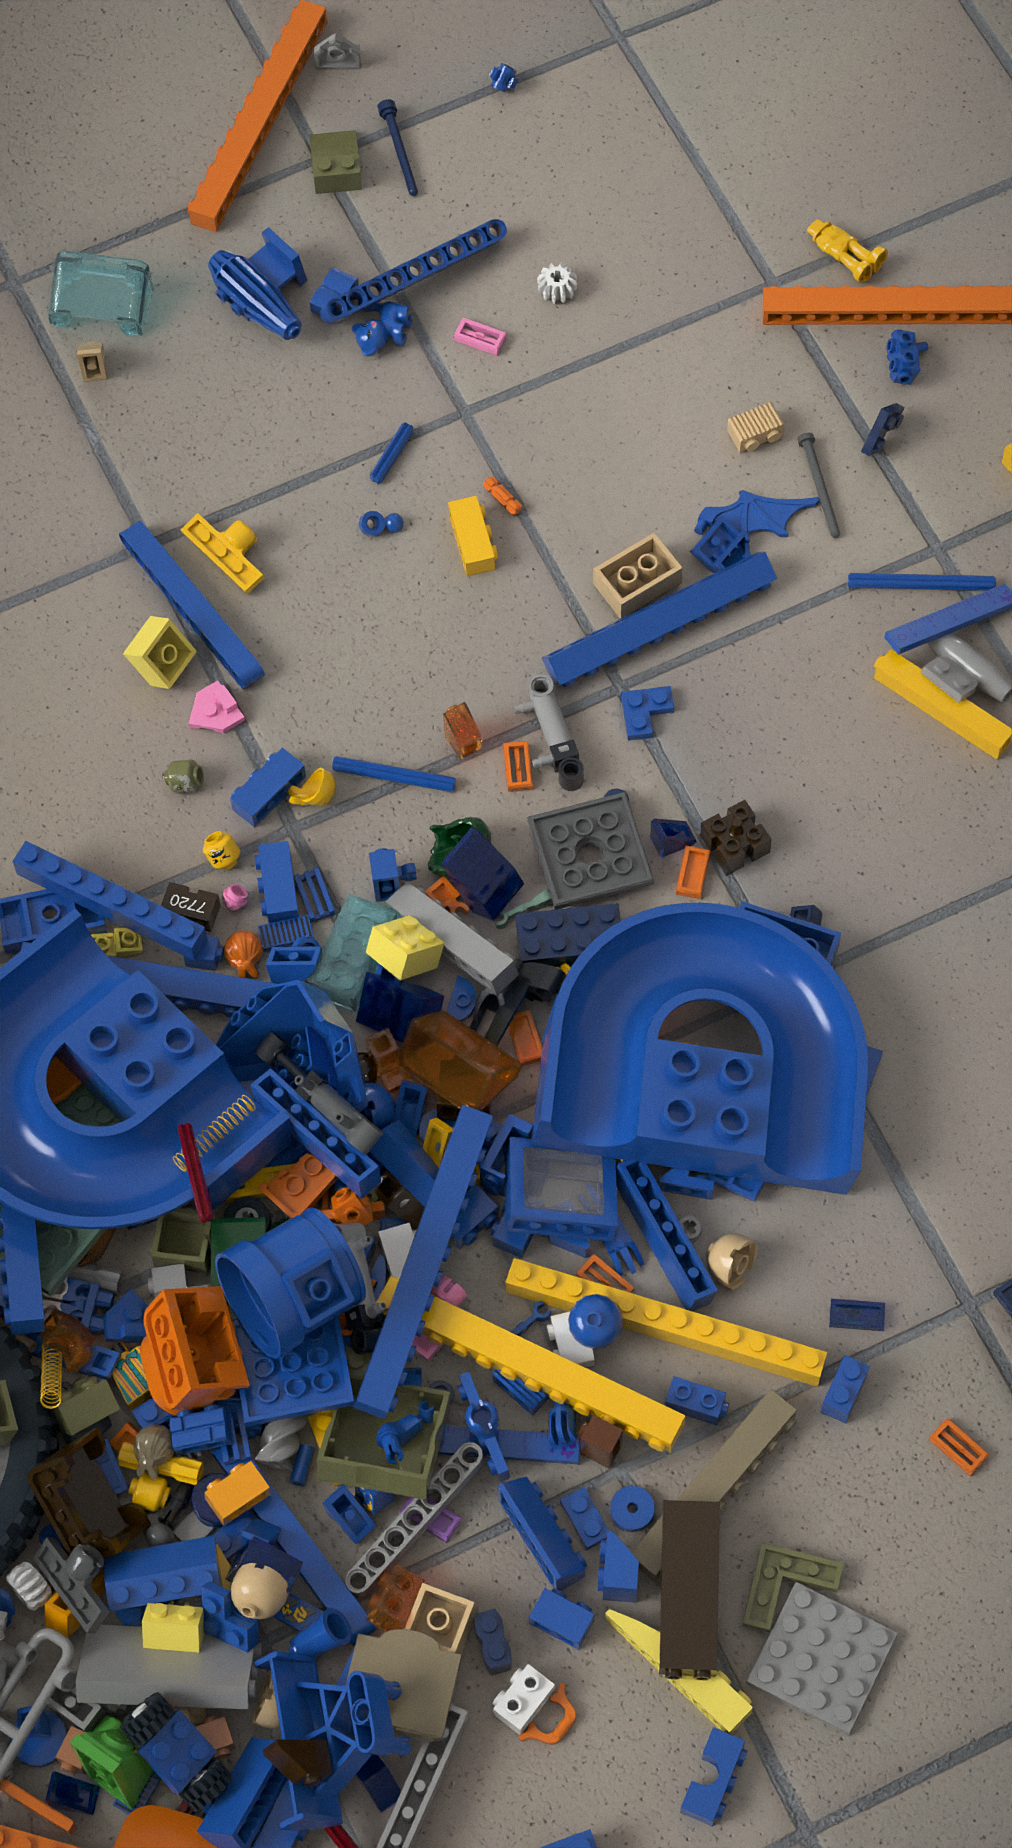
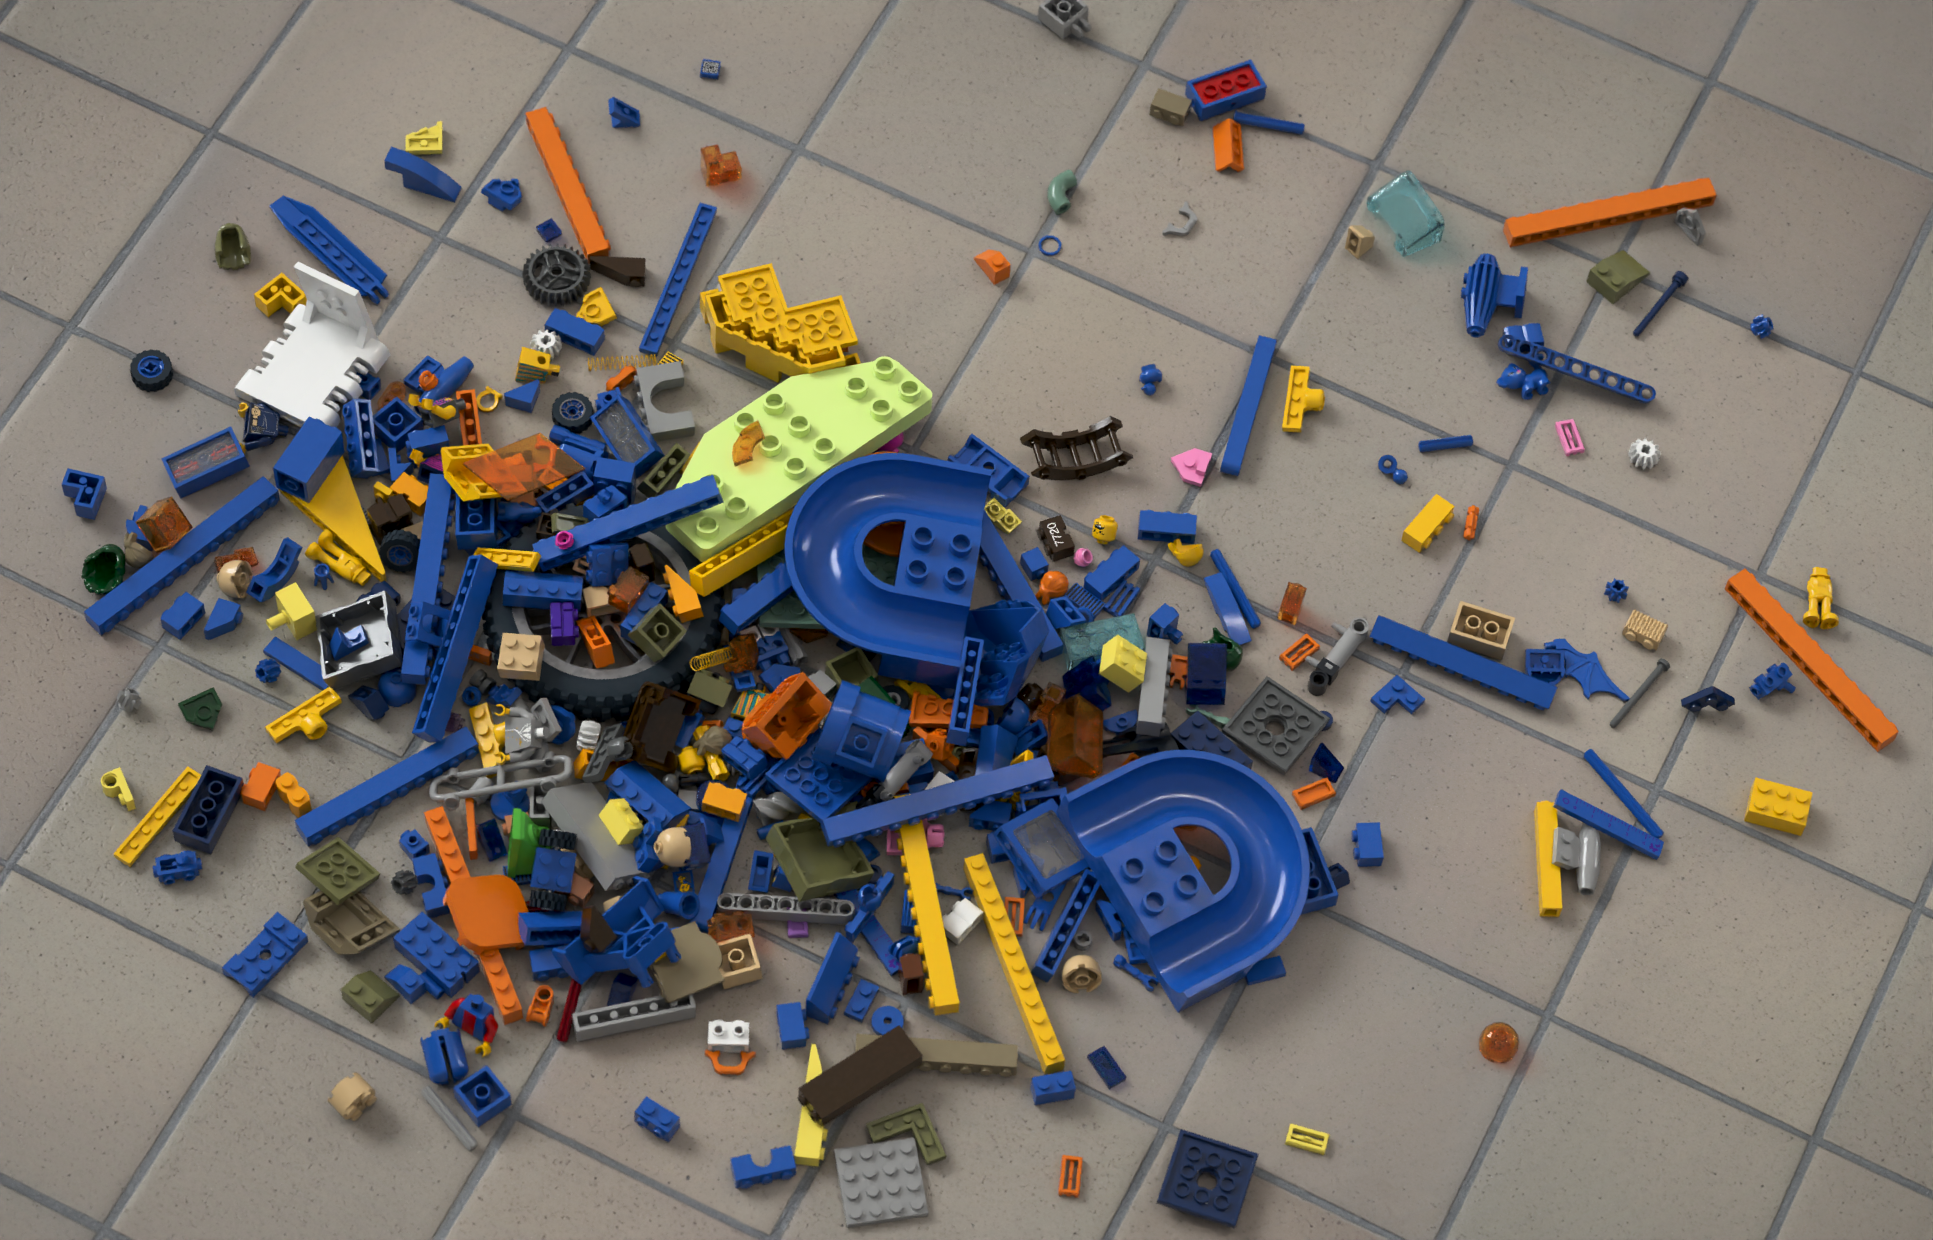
camera: 45 degrees right, 5 degrees down
(74, 674) = (1148, 376): none -> blue animal
(84, 807) = (1070, 439): none -> dark brown fence
(110, 900) = (1020, 491): blue brick -> none
(160, 652) = (1199, 408): light yellow brick -> none
(184, 776) = (1135, 478): olive head -> none
(195, 1173) = (883, 640): dark red axle -> none
(249, 1107) = (954, 645): yellow piece -> none
(322, 1095) = (989, 675): dark grey piece -> none
(398, 1433) = (828, 863): blue arm -> none
(413, 798) = (1227, 608): none -> blue slope
(495, 1647) = (747, 998): dark blue brick -> none
(595, 1321) = (978, 920): blue cylinder -> none
(620, 1574) = (840, 1034): blue slope -> none
(690, 420) = (1616, 590): none -> blue gear
(697, 1401) = (979, 1011): blue brick -> none
(735, 837) = (1354, 799): dark brown brick -> none
(745, 1209) = (1121, 962): none -> blue piece
(796, 862) = (1368, 844): none -> blue brick

